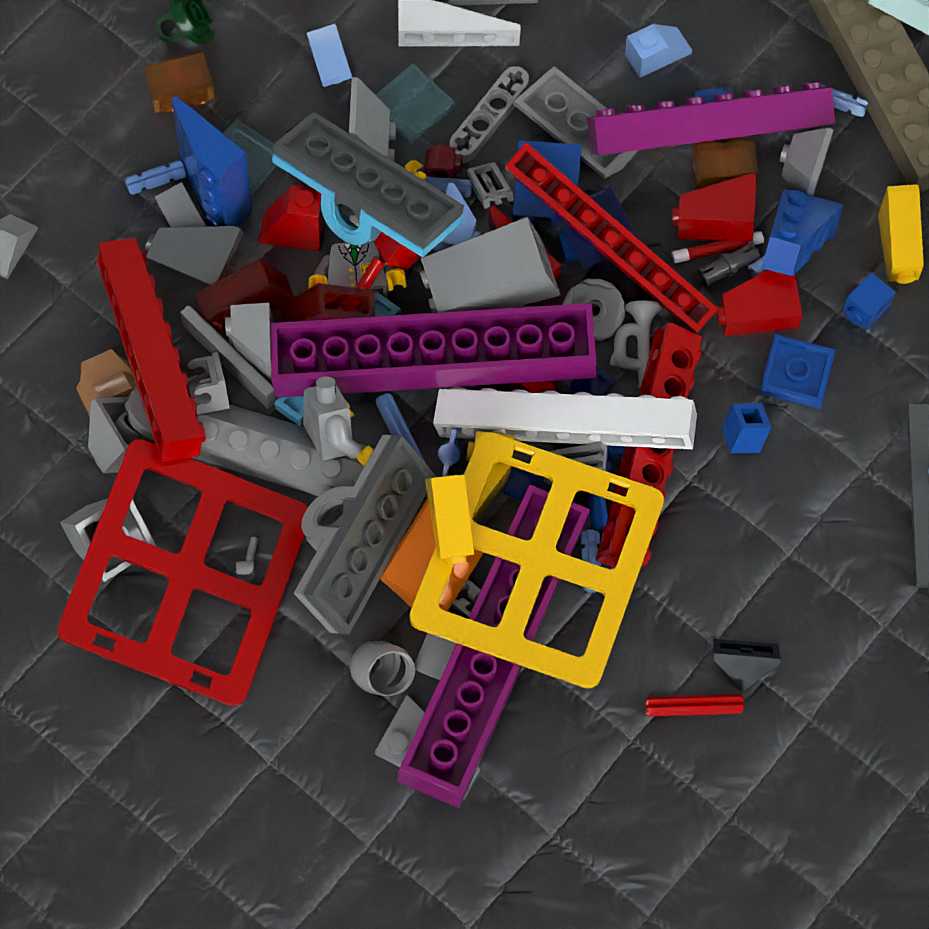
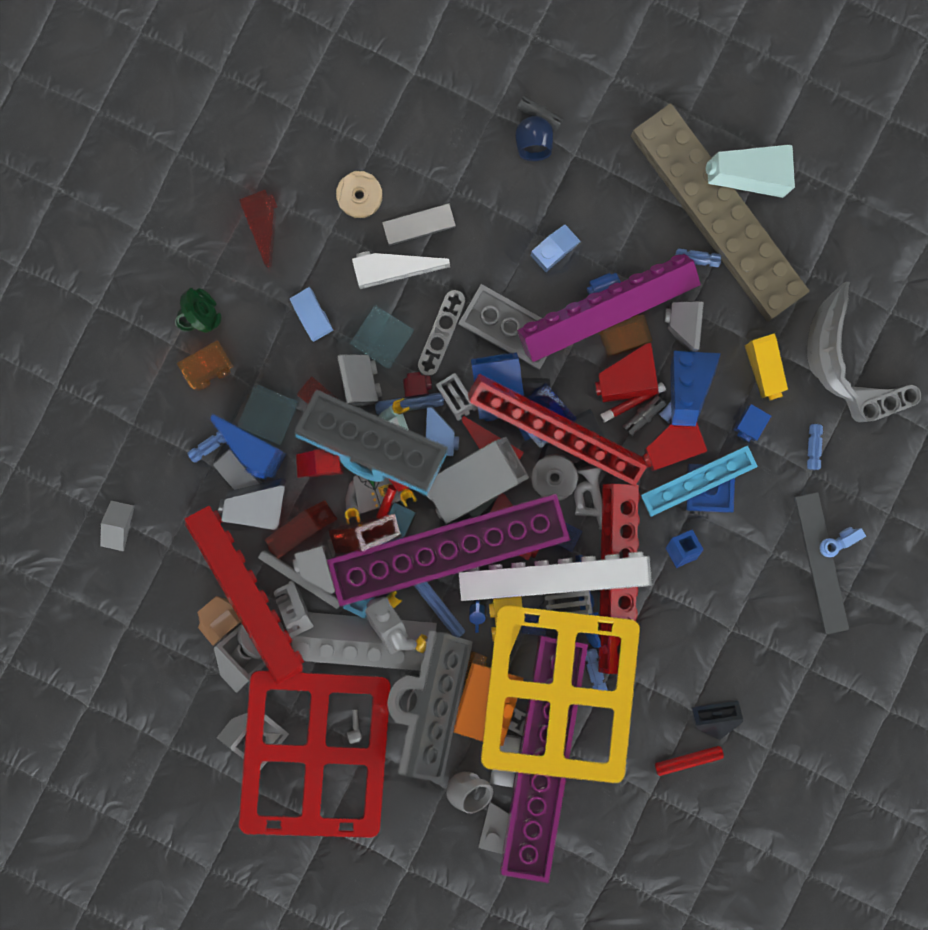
camera: 10 degrees left, 20 degrees up
(450, 517) = (492, 685): yellow slope -> none
(783, 351) = (698, 481): none -> medium azure plate

